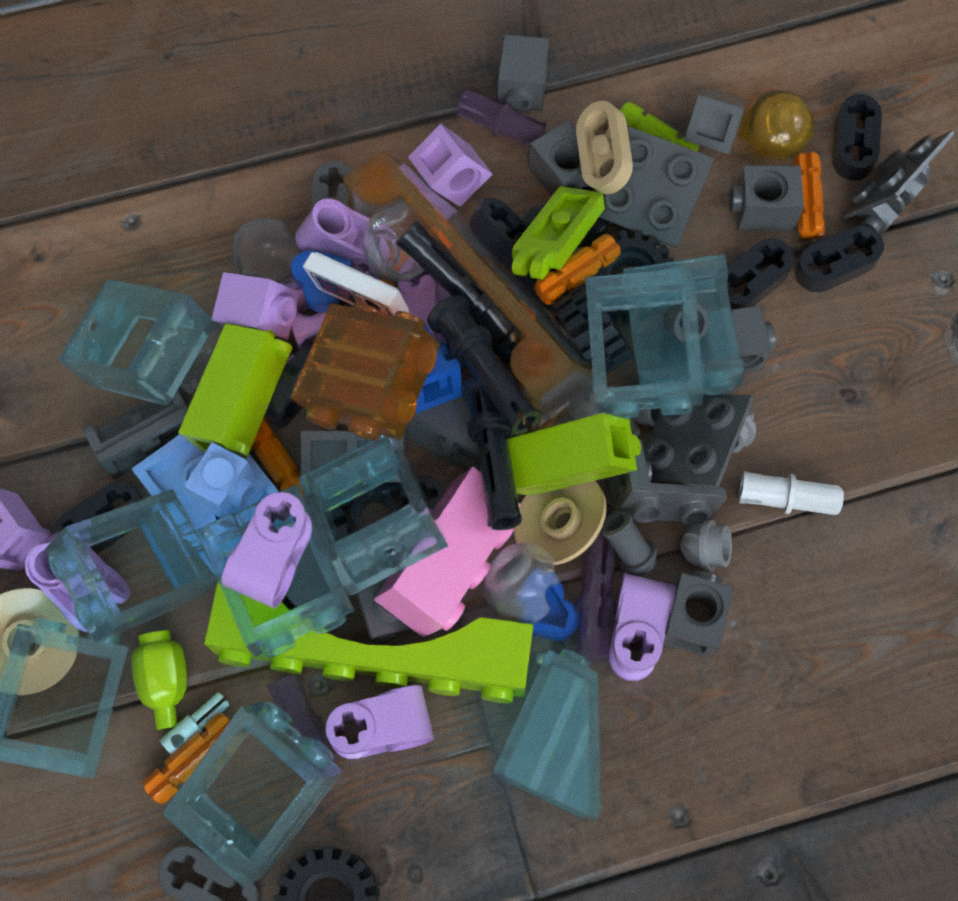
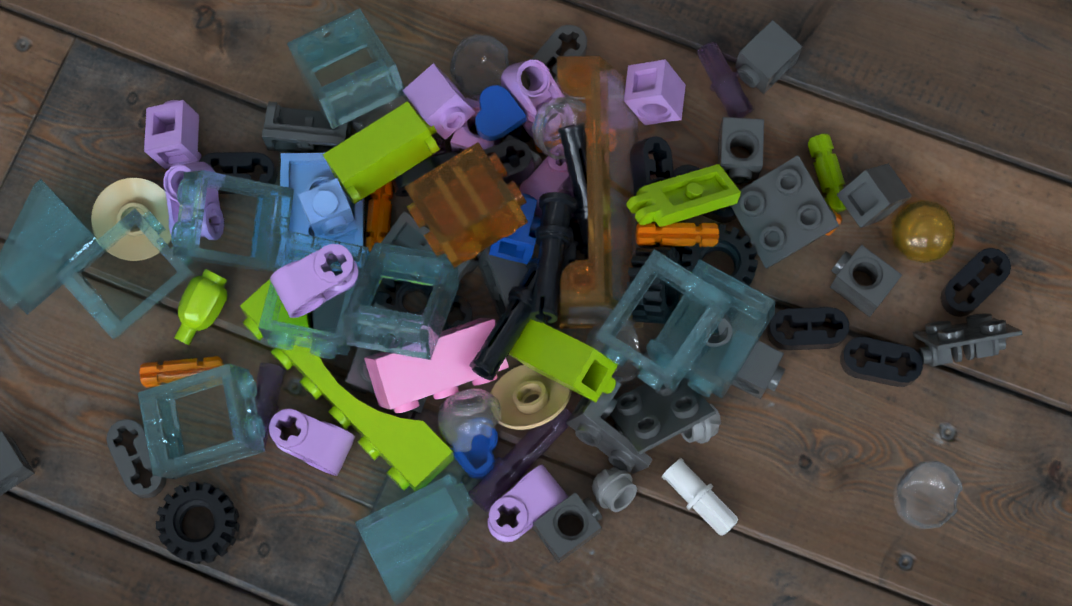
camera: 35 degrees right, 5 degrees up
(188, 727) = (194, 350): light aqua pin -> none
(353, 285) = (508, 142): white tile -> none
(604, 157) = (765, 160): tan plate -> none
(634, 552) = (561, 455): dark grey pin -> none
(811, 220) = (899, 300): orange axle -> none

